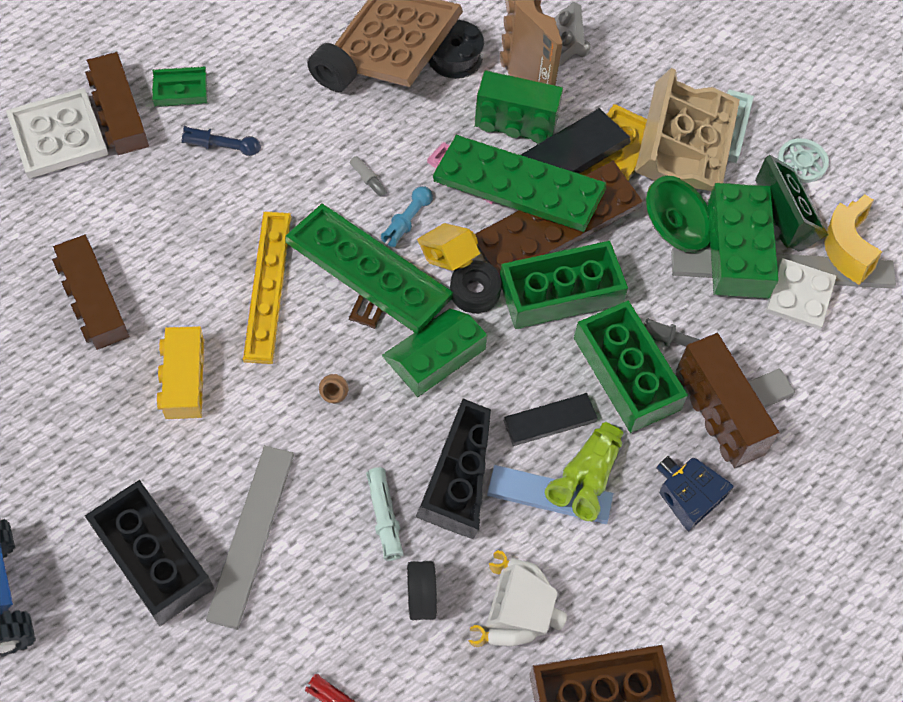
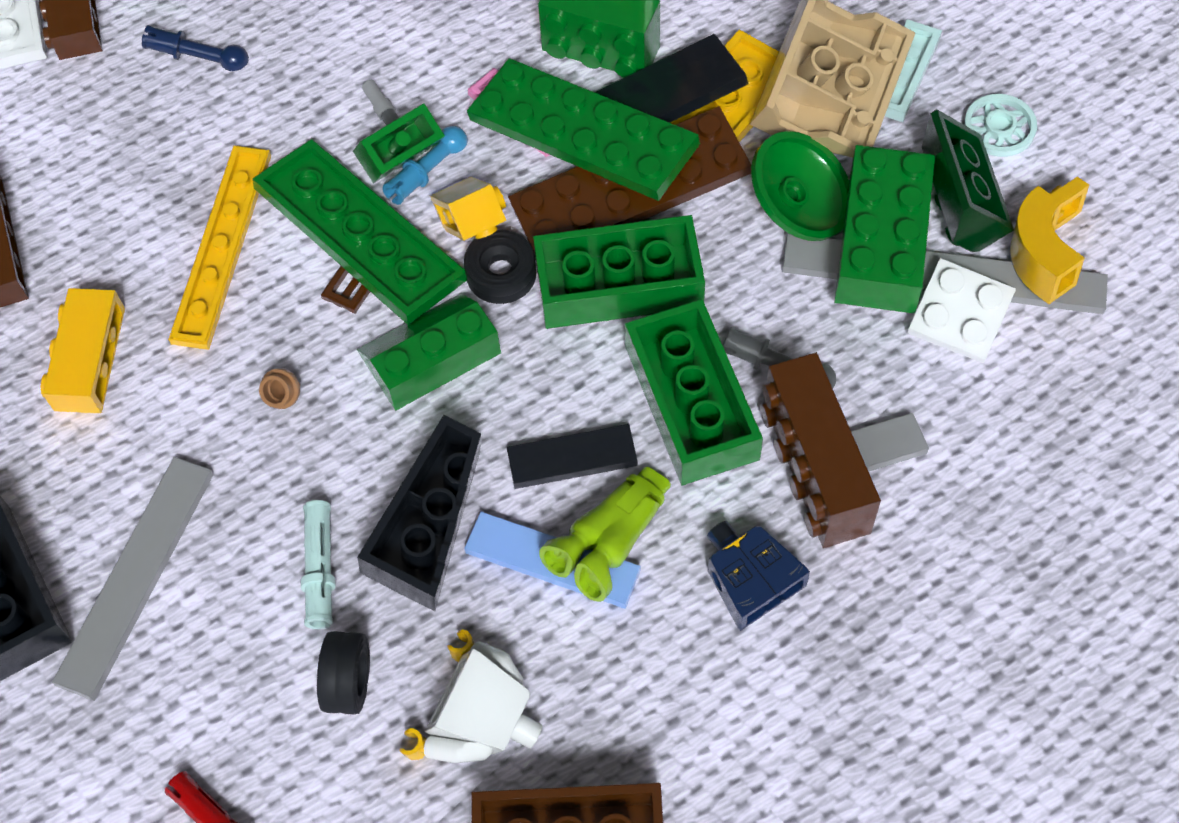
camera: 15 degrees right, 0 degrees up
(388, 202) = (398, 143): none -> green brick

